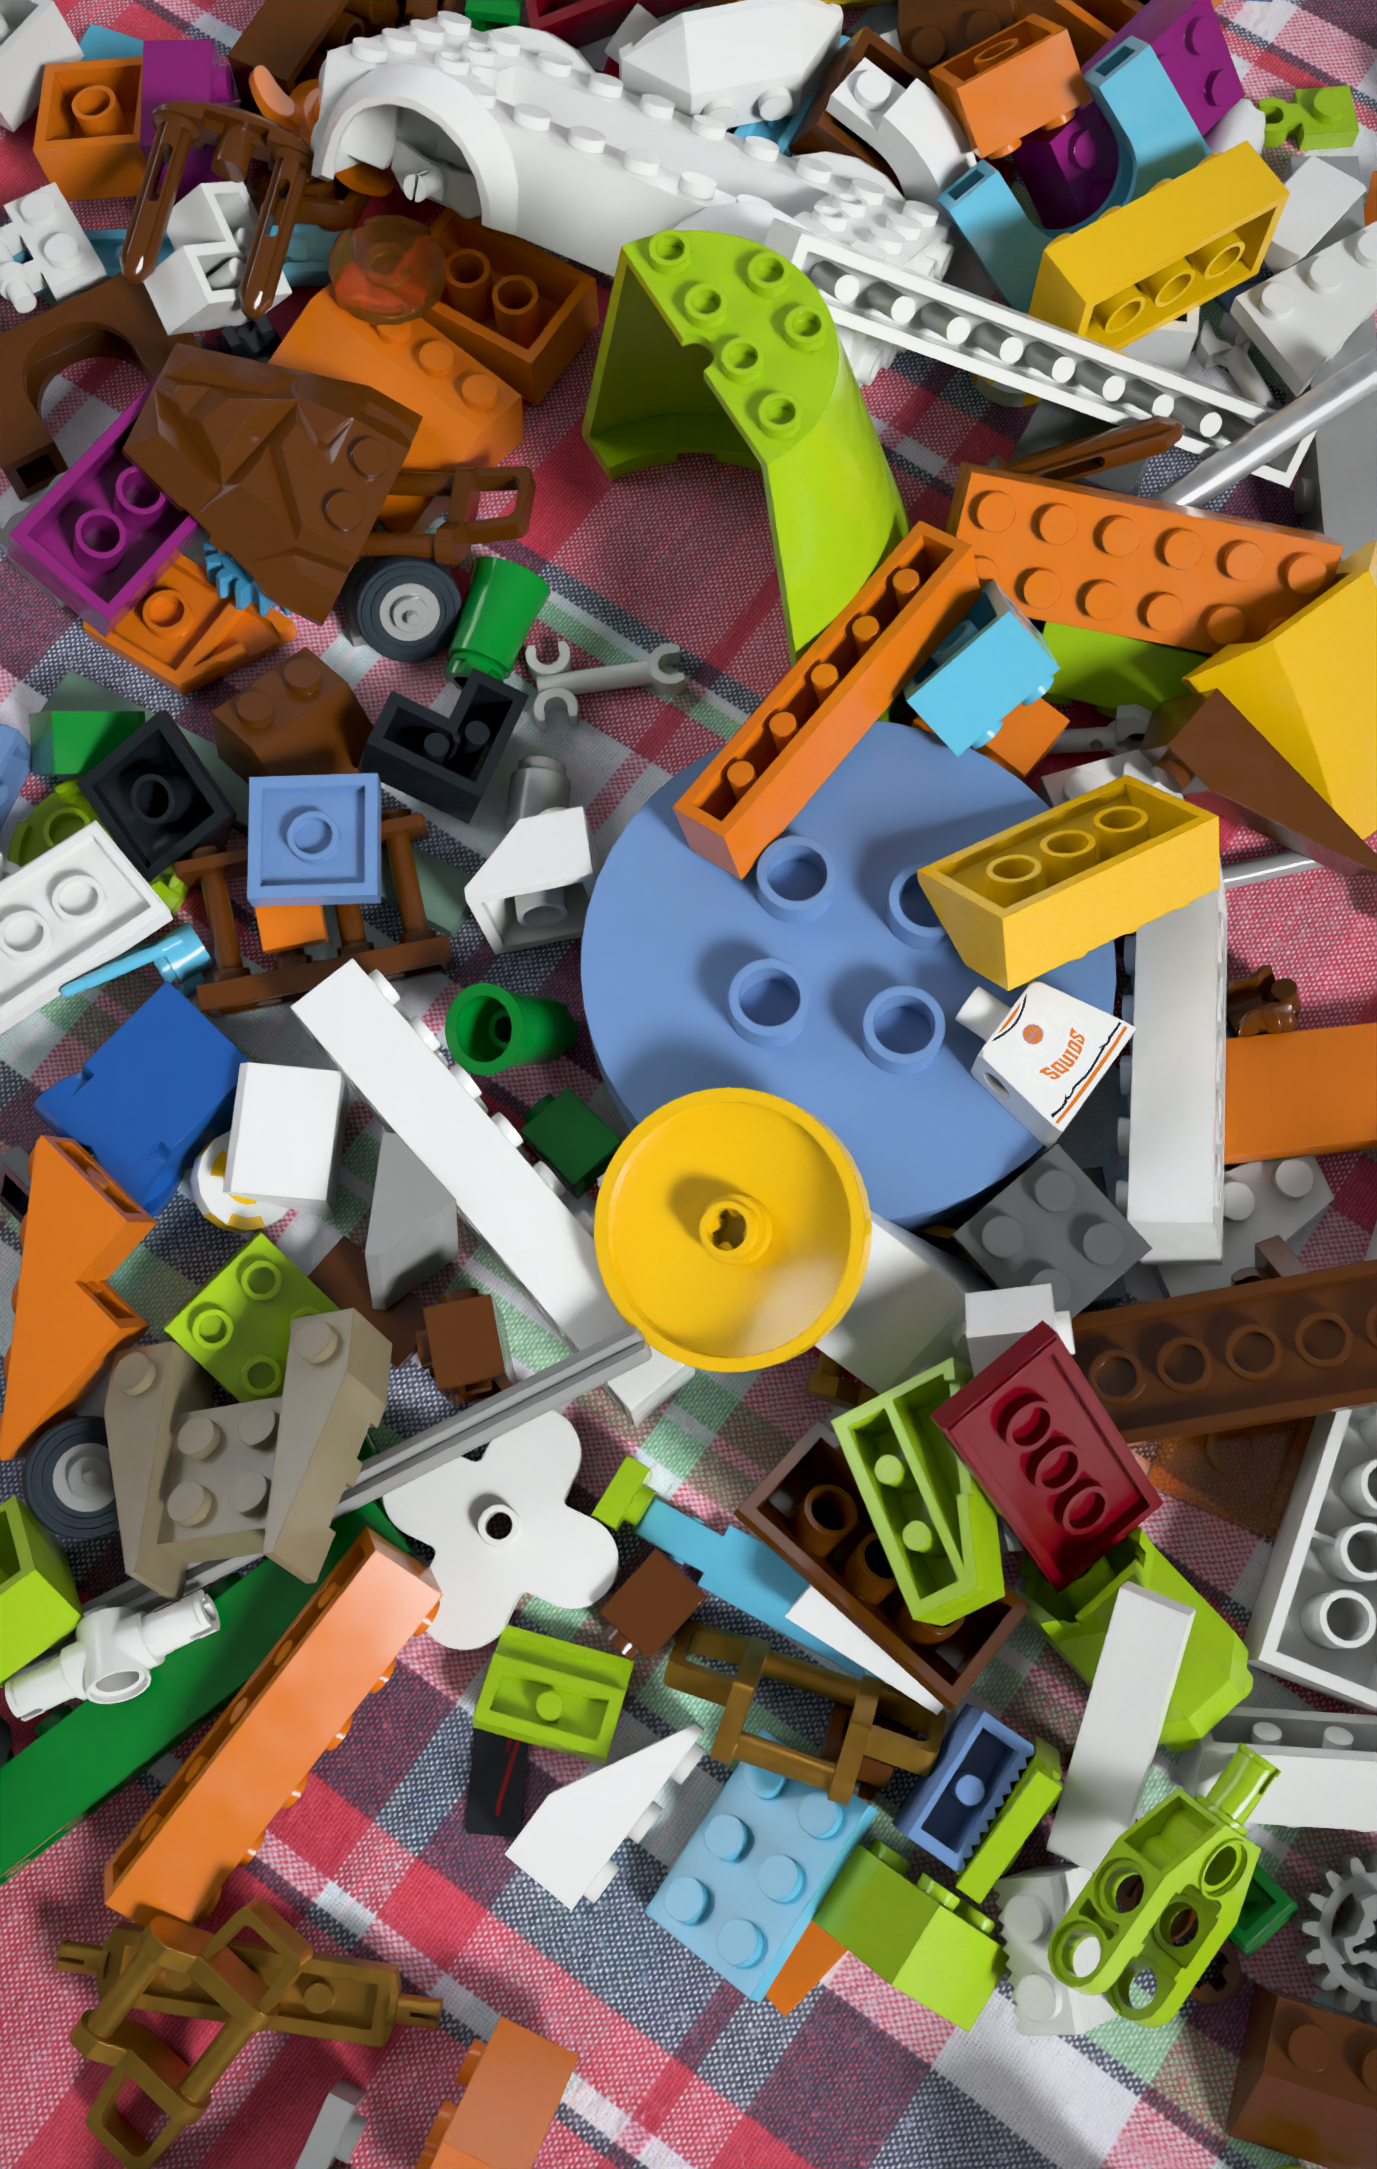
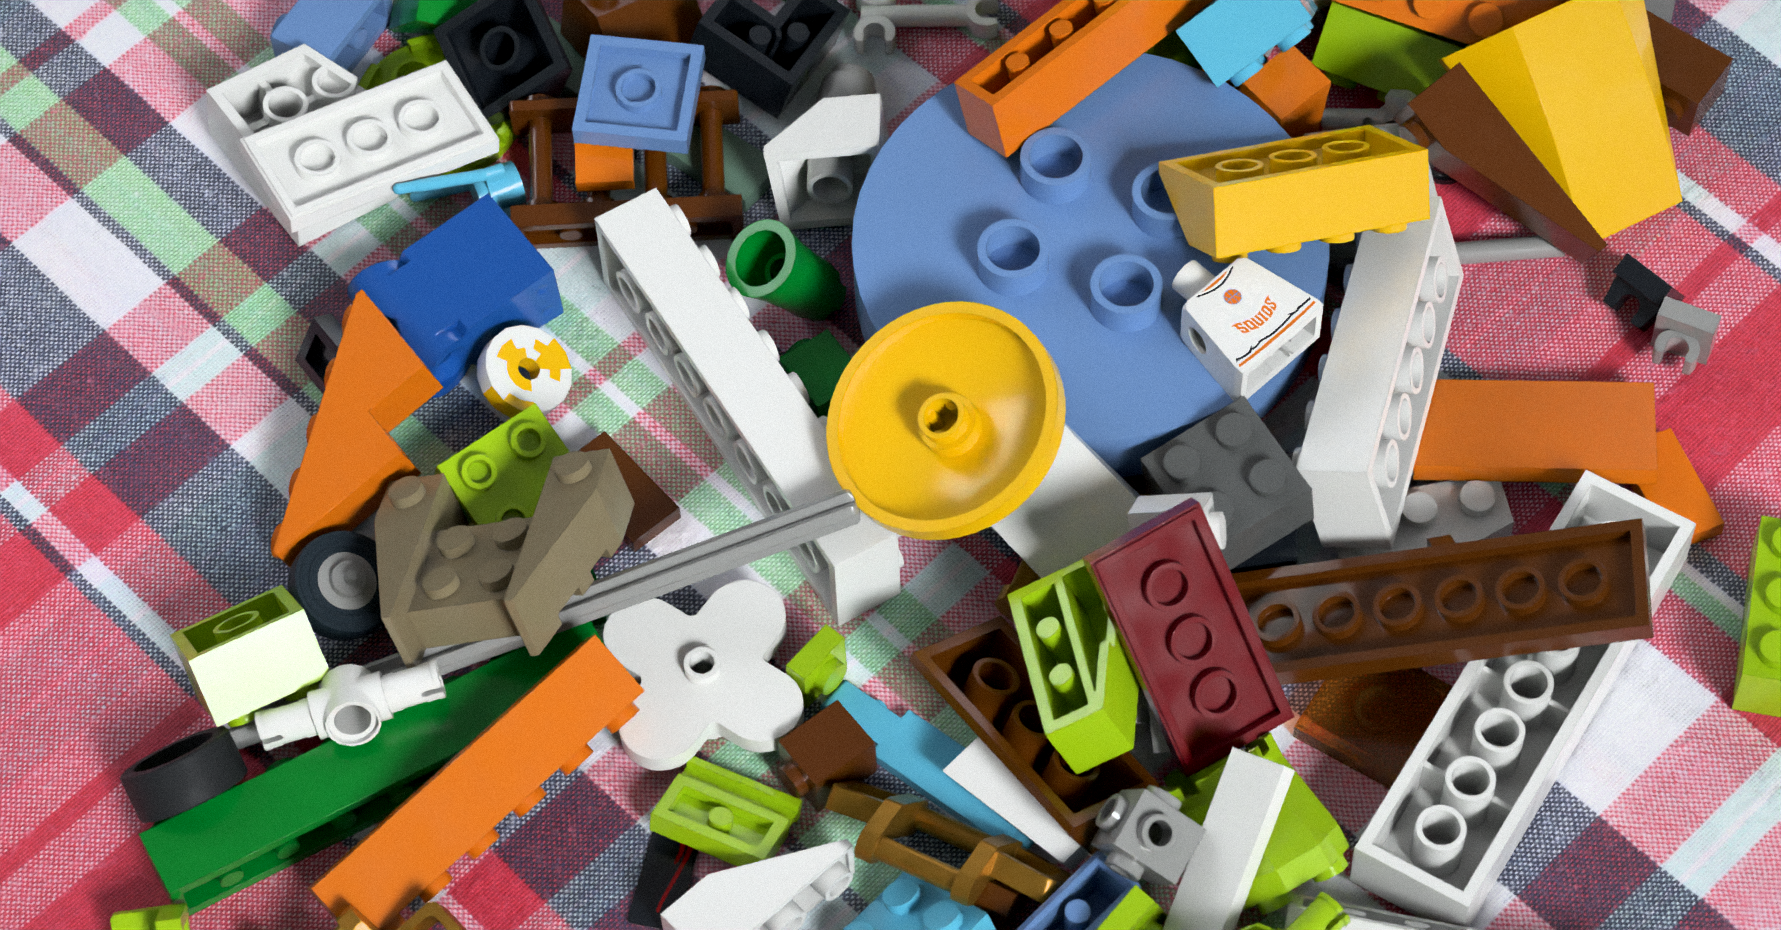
camera: 10 degrees right, 15 degrees down
(287, 1137) = (573, 334): white slope -> none
(409, 1224) = (666, 414): light grey slope -> none
(466, 1346) = (697, 509): reddish brown brick -> none
(1036, 1697) = (1146, 835): none -> light grey brick
(1262, 1004) = (1479, 353): reddish brown arm -> none

